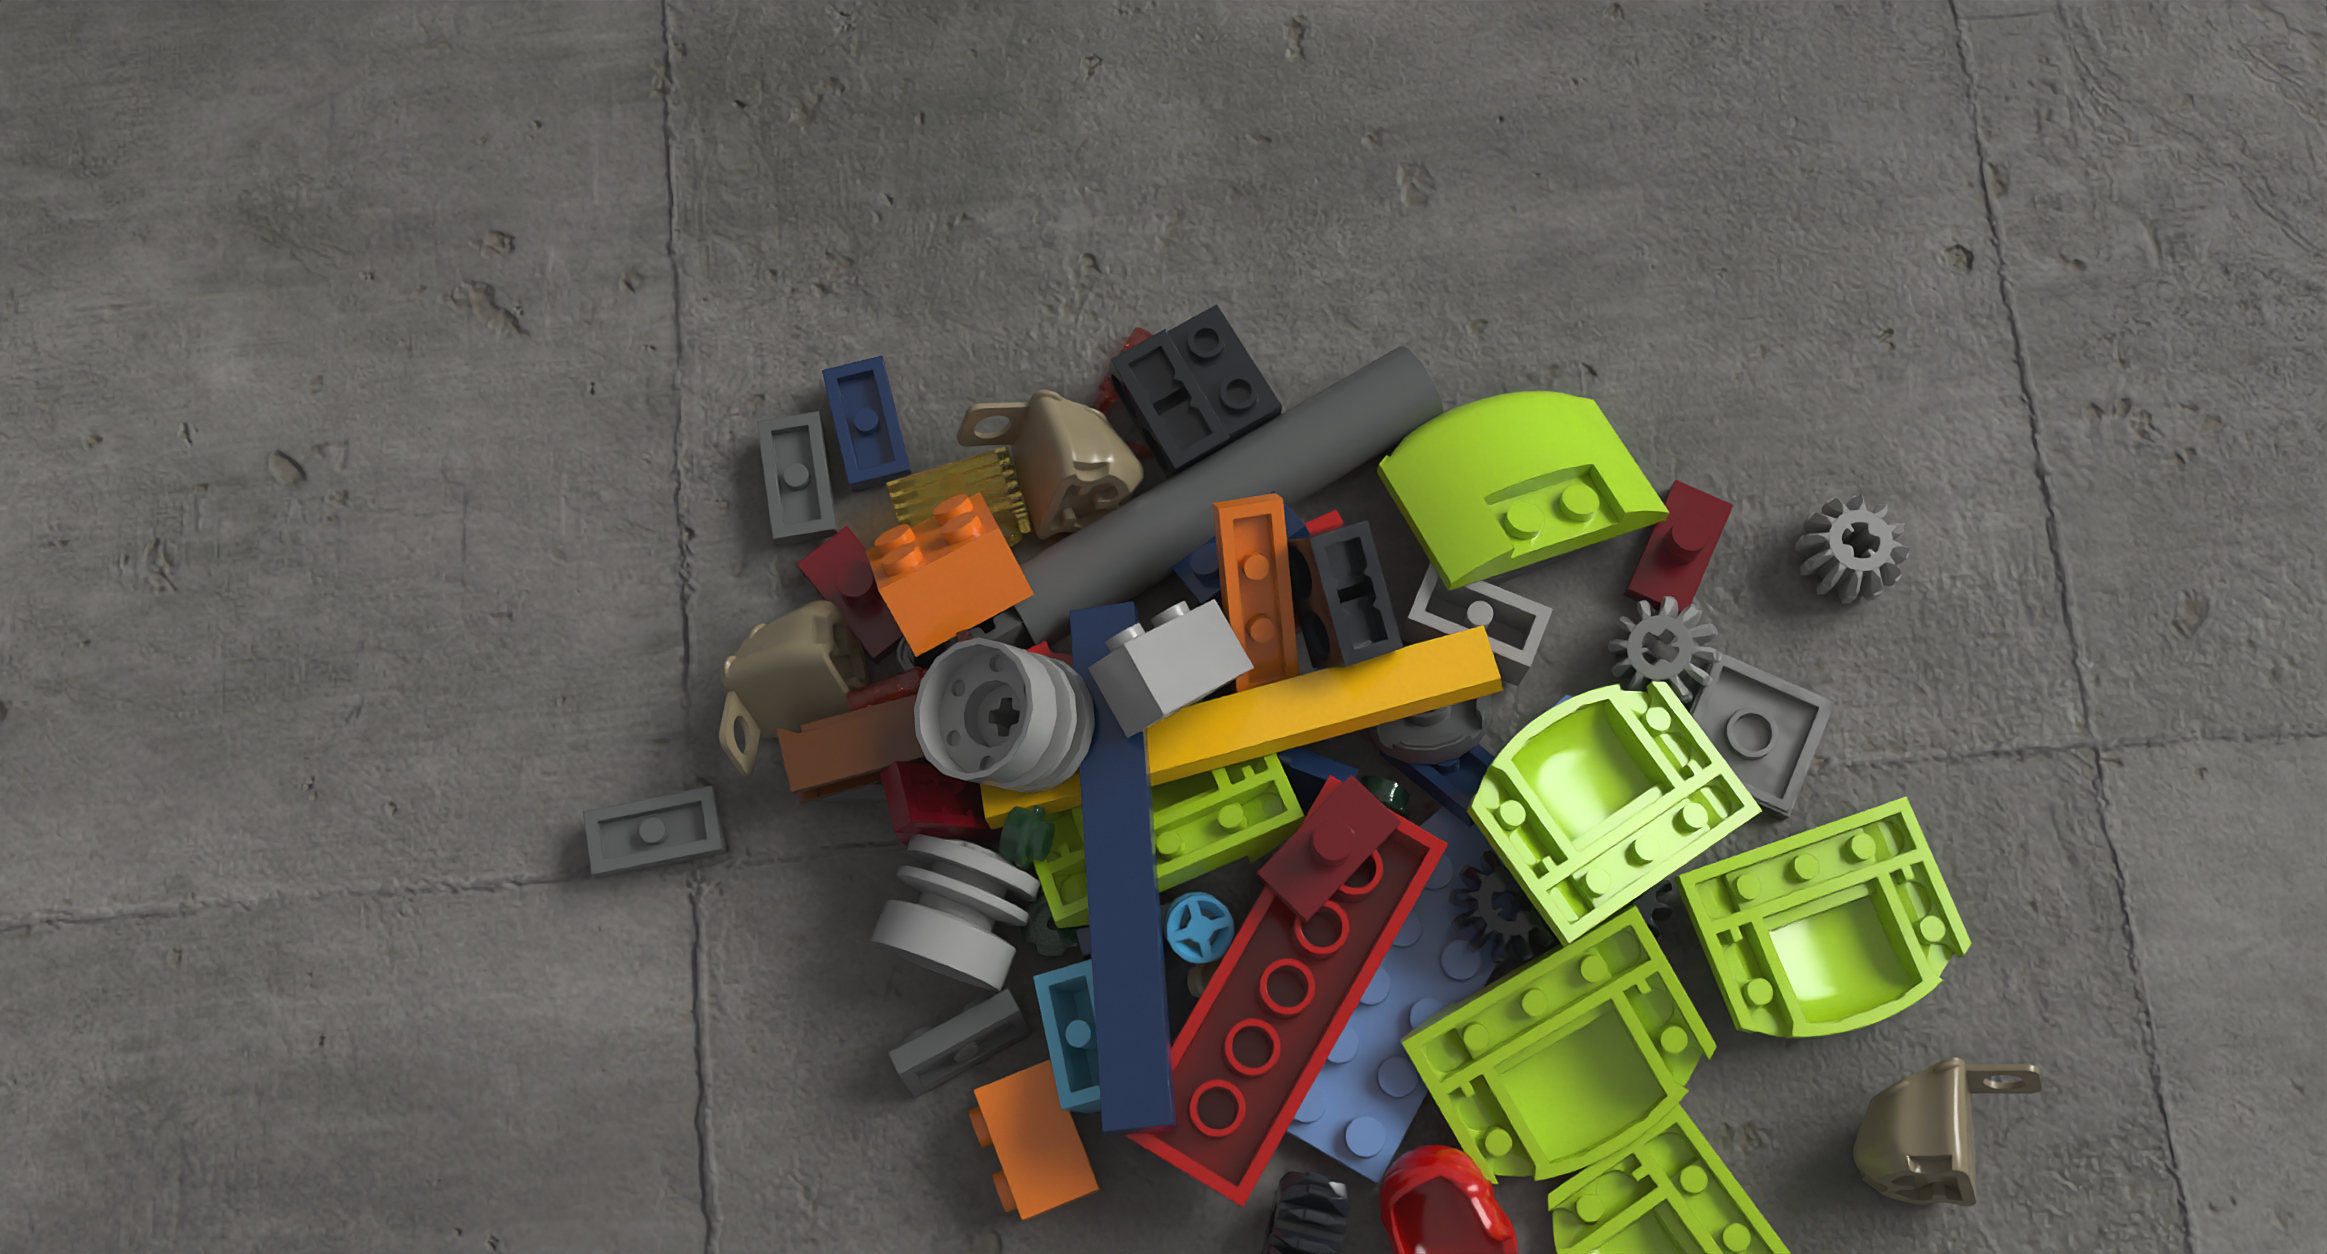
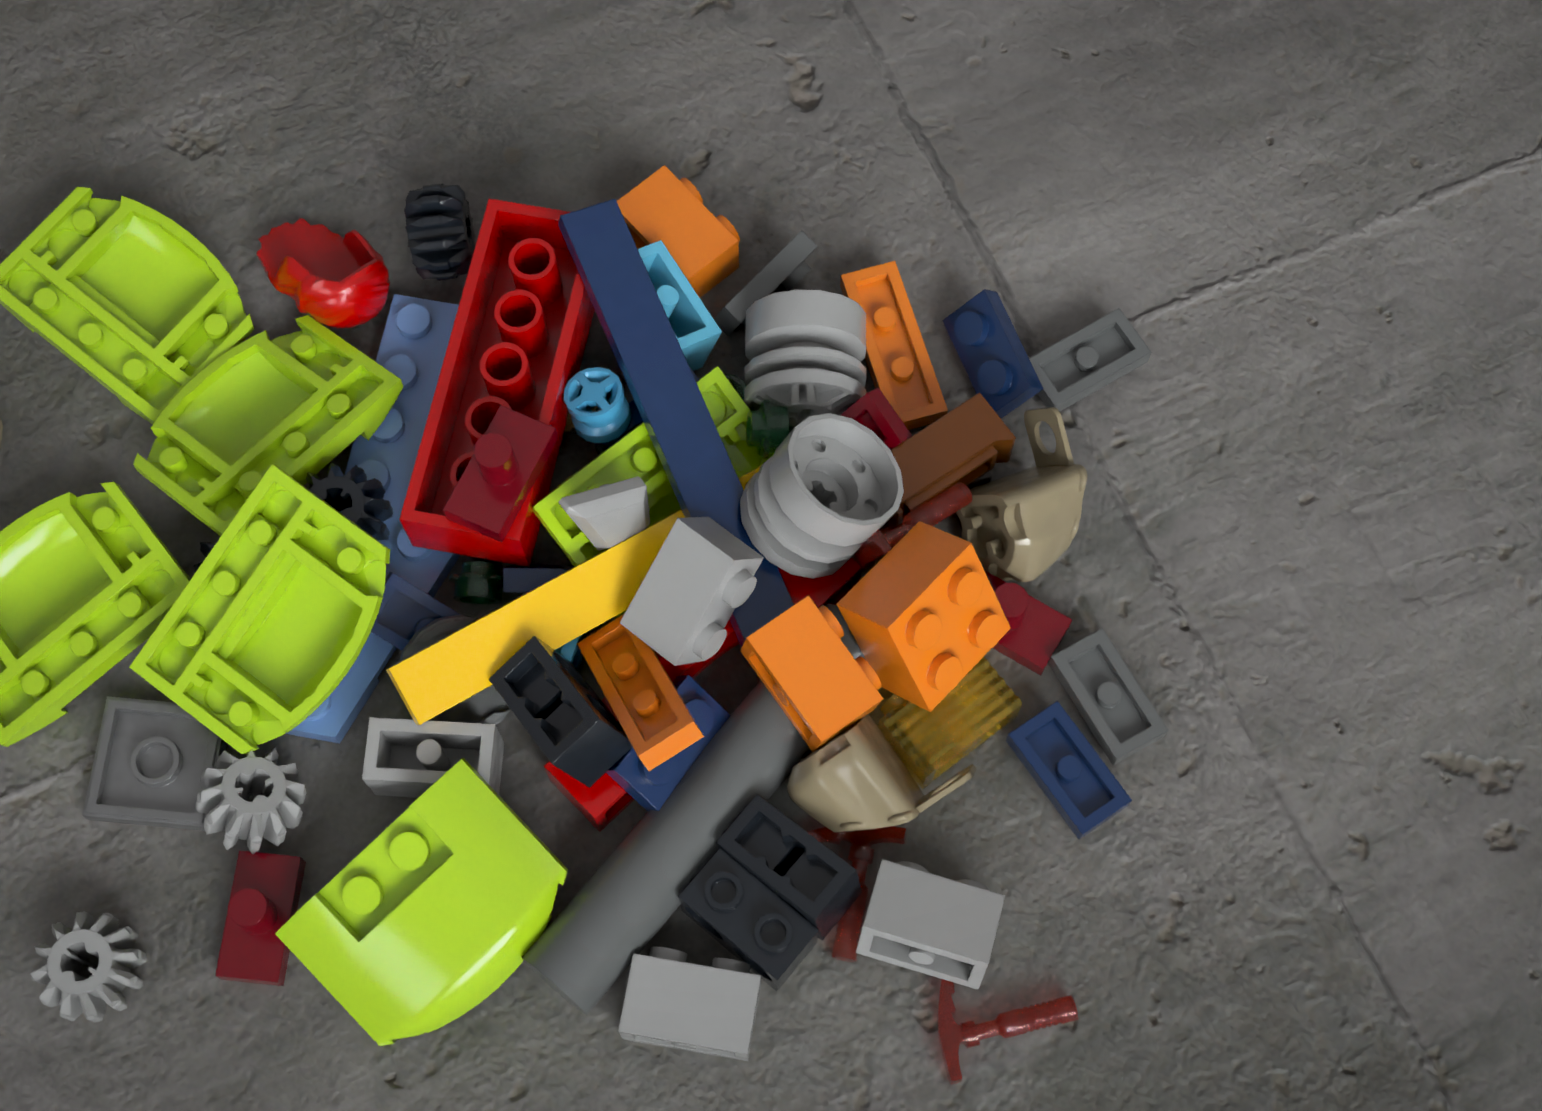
camera: 160 degrees right, 5 degrees down
(749, 872) = (992, 352): none -> dark blue plate
(849, 905) = (895, 345): none -> orange plate
(1020, 232) = (1006, 1025): none -> clear red piece
(1055, 323) = (931, 923): none -> light grey brick
(1083, 548) = (812, 672): none -> orange brick
(1223, 772) = (610, 511): none -> light grey piece
(1300, 328) = (690, 1004): none -> light grey brick

